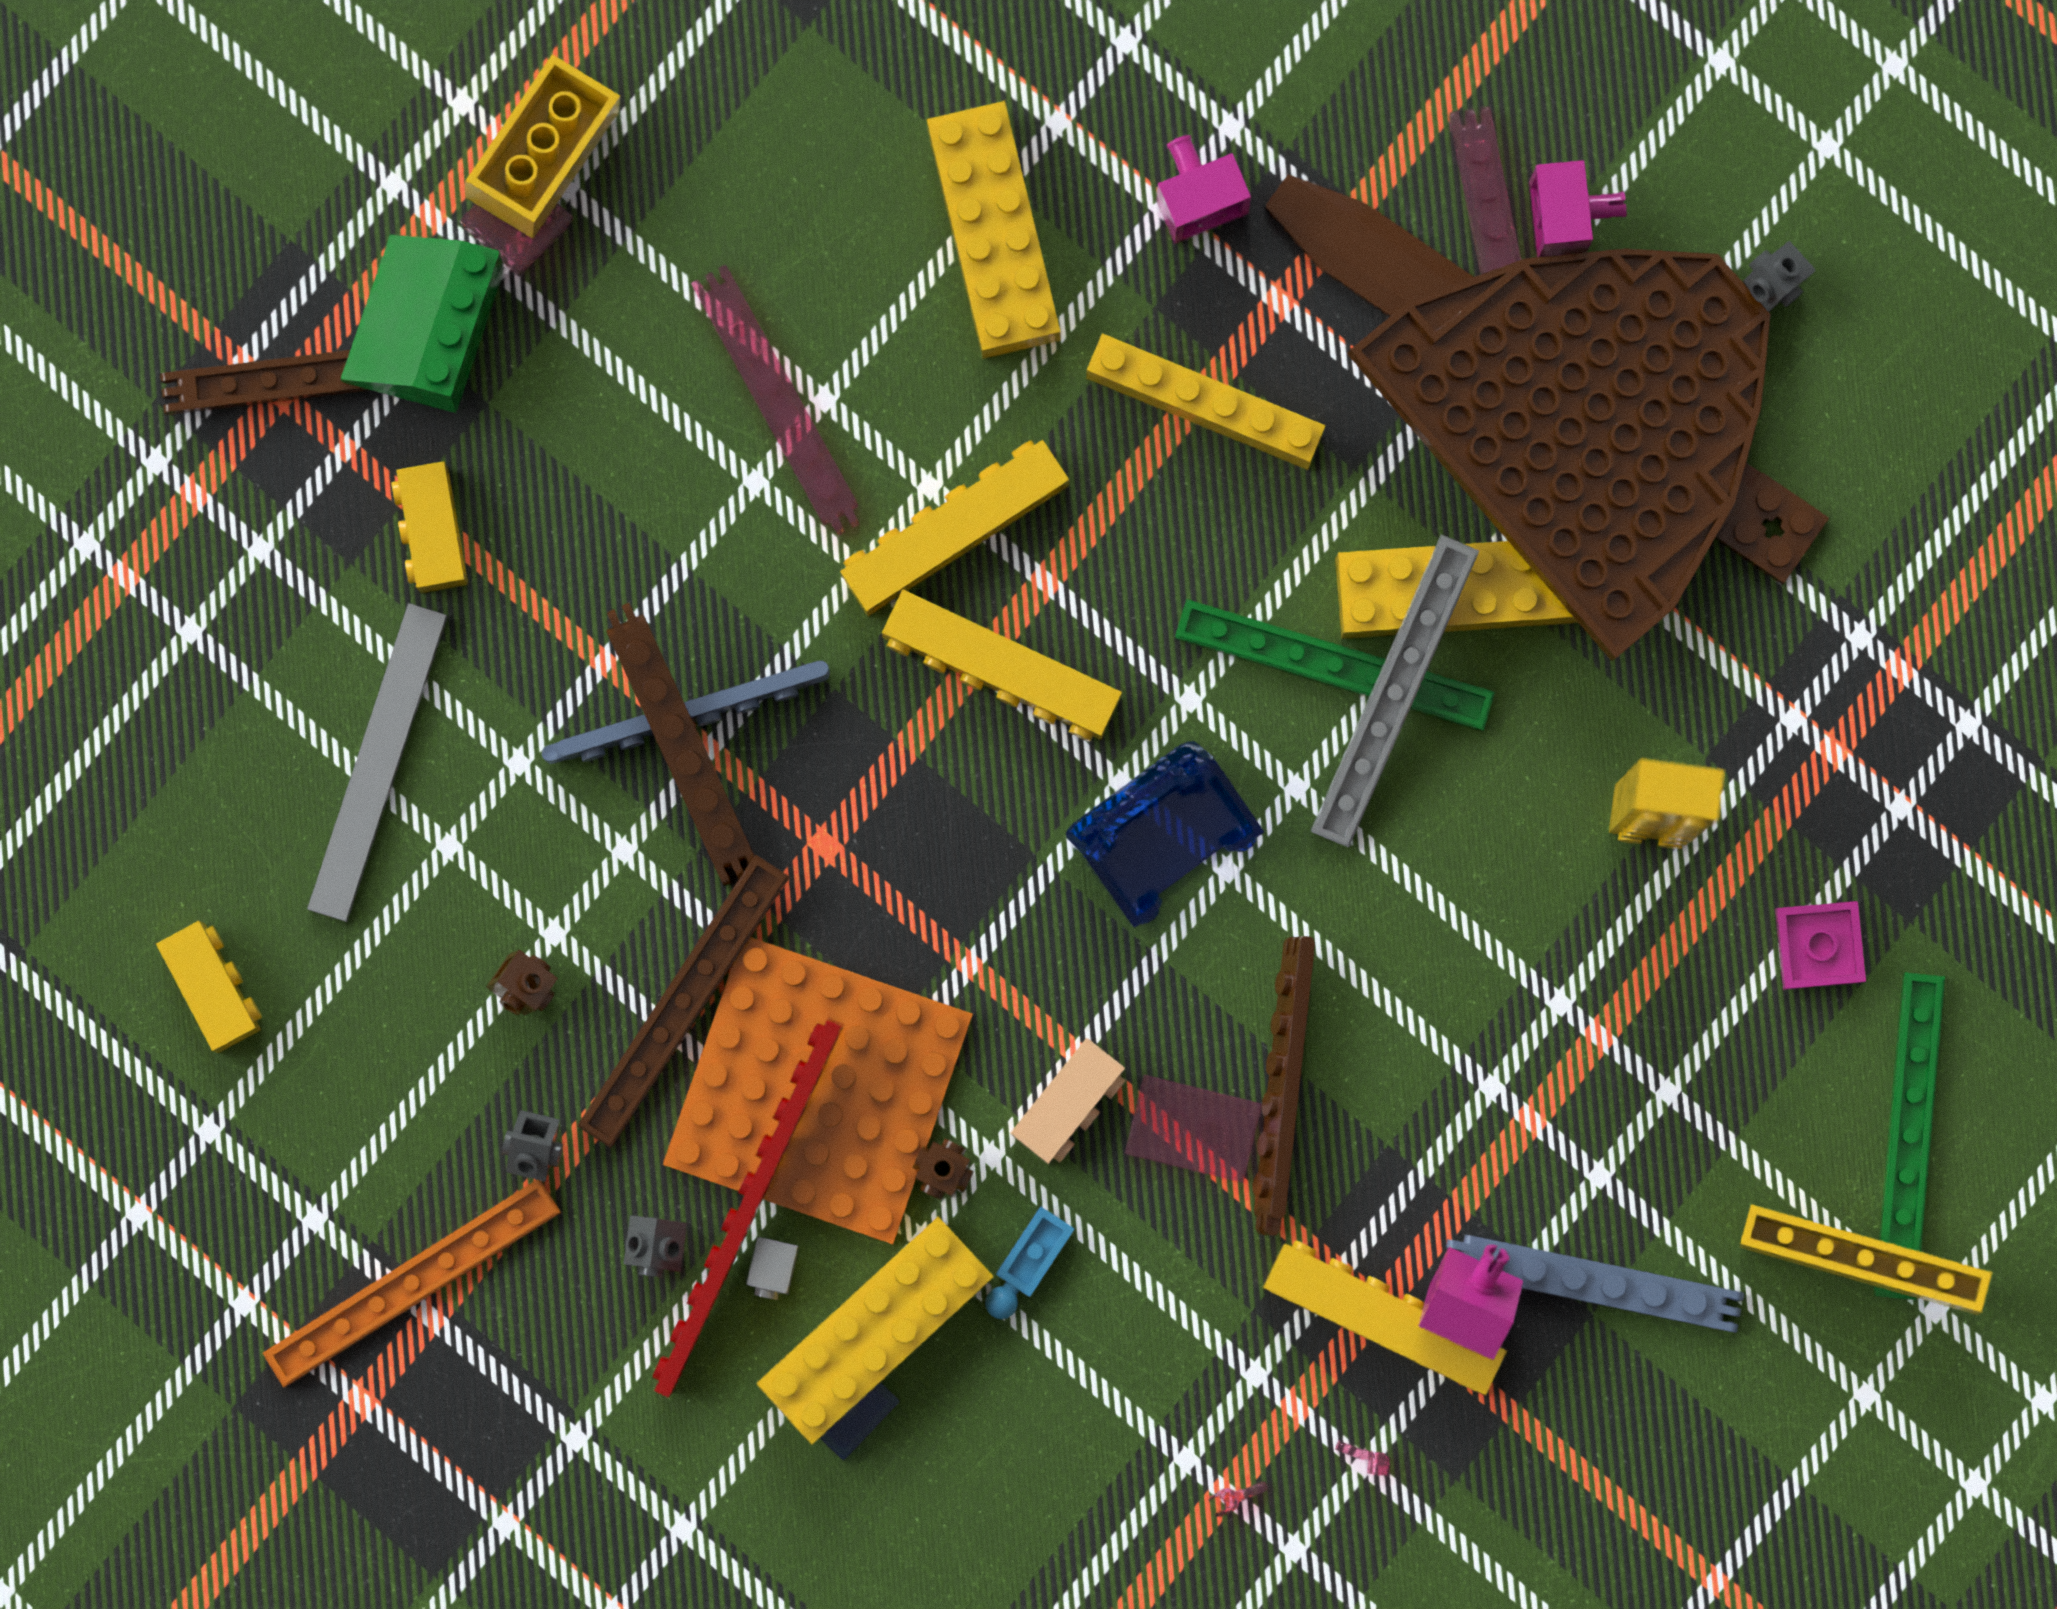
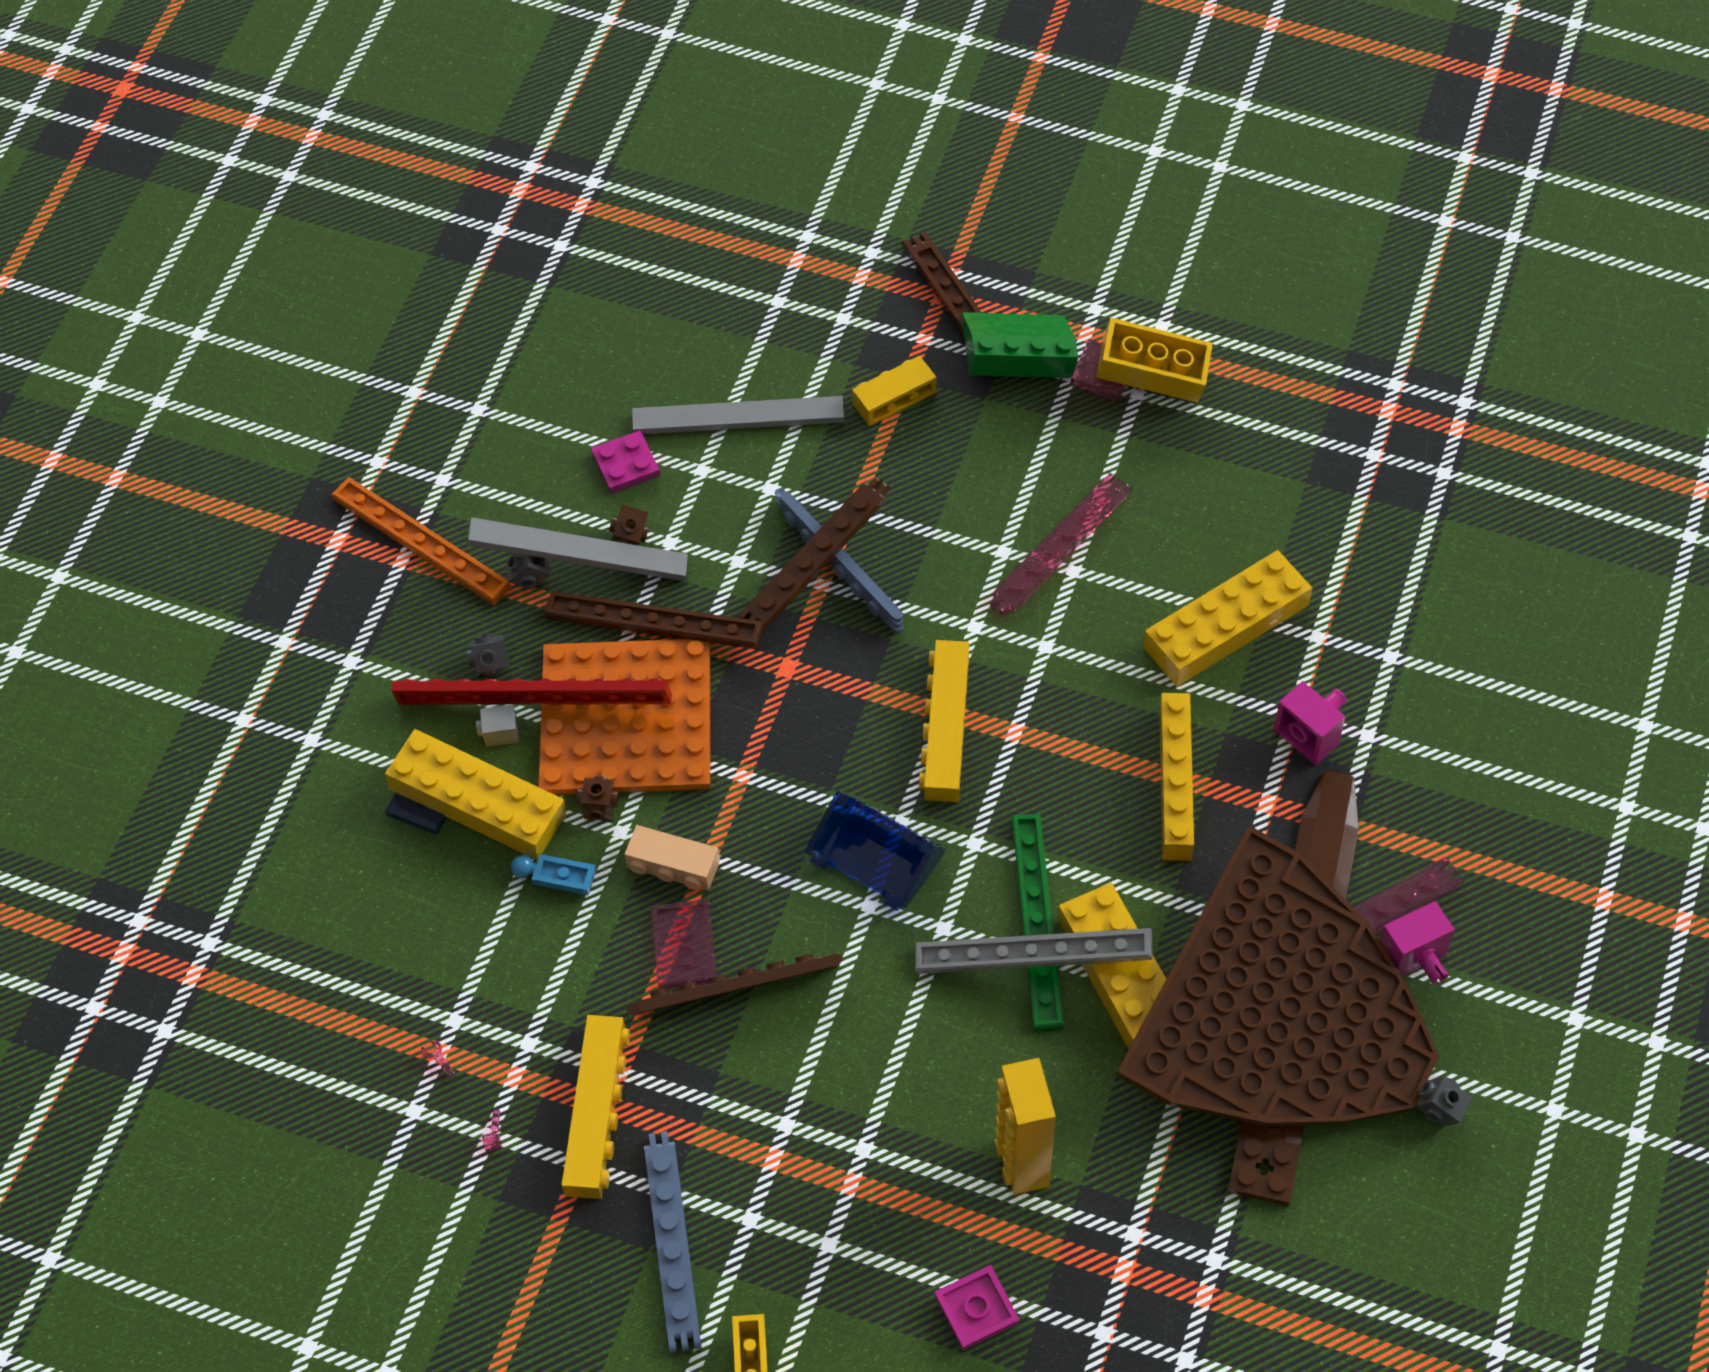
camera: 70 degrees right, 25 degrees down
(210, 985) = (564, 374): yellow brick -> none
(393, 949) = (625, 462): none -> dark pink plate
(542, 1069) = (577, 549): none -> light grey tile
(954, 527) = (1026, 664): yellow brick -> none
(1472, 1300) = (624, 1149): dark pink brick -> none

